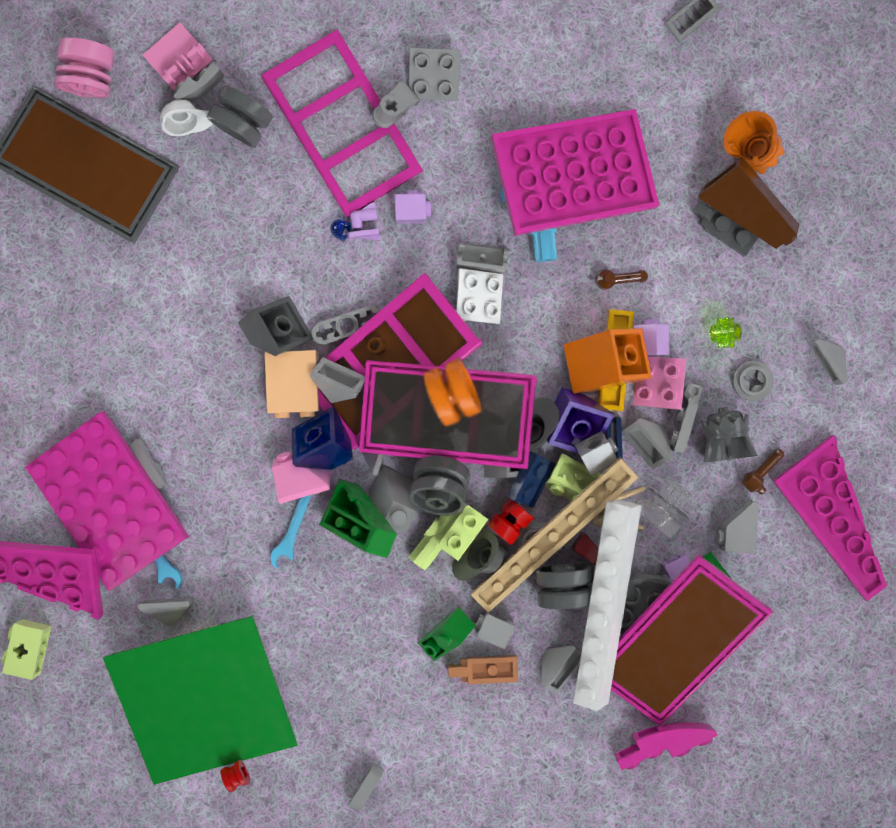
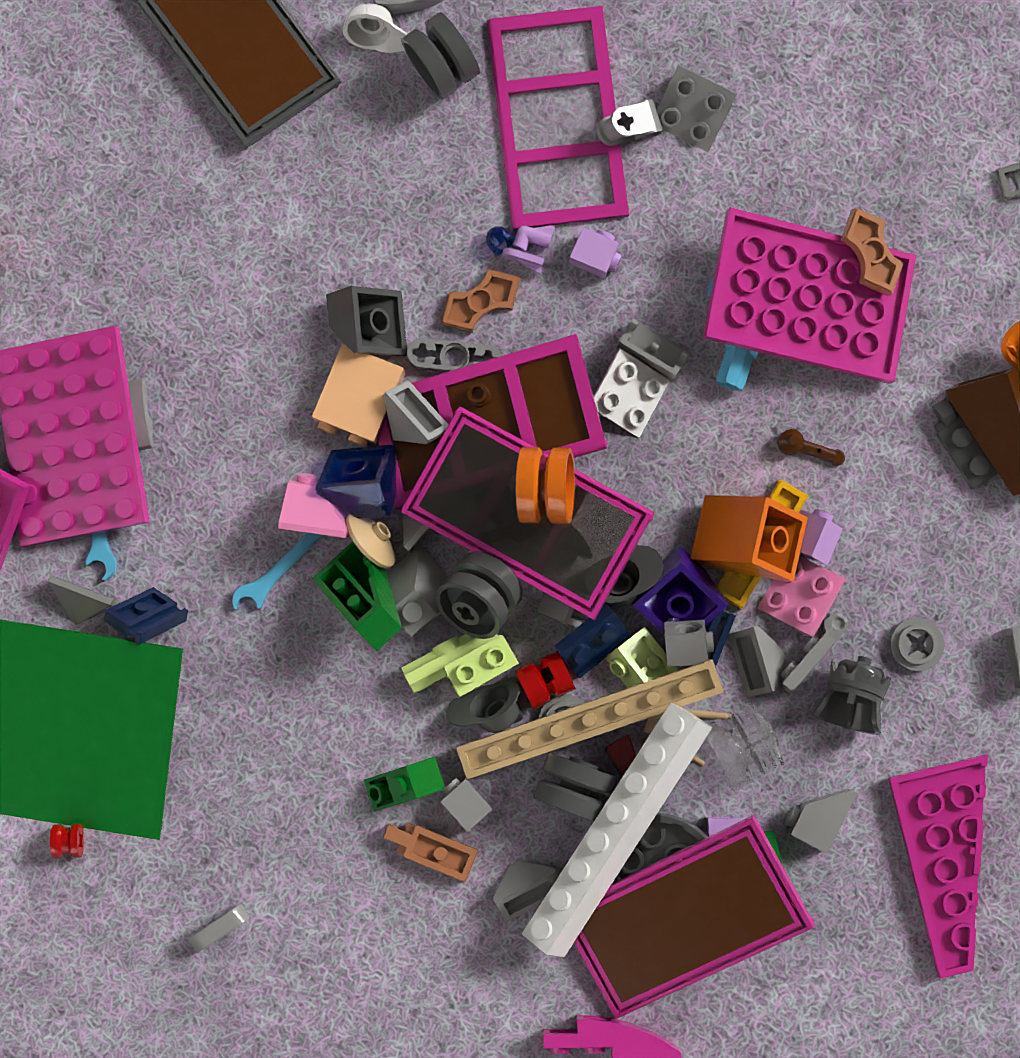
camera: 30 degrees right, 5 degrees down
(216, 602) = (145, 615): none -> dark blue plate
(340, 287) = (493, 293): none -> nougat tile
(348, 480) = (372, 540): none -> tan dish
(596, 112) = (877, 264): none -> nougat tile
(725, 332) = (908, 569): clear neon green gear -> none
(754, 480) = (865, 766): reddish brown piece -> none

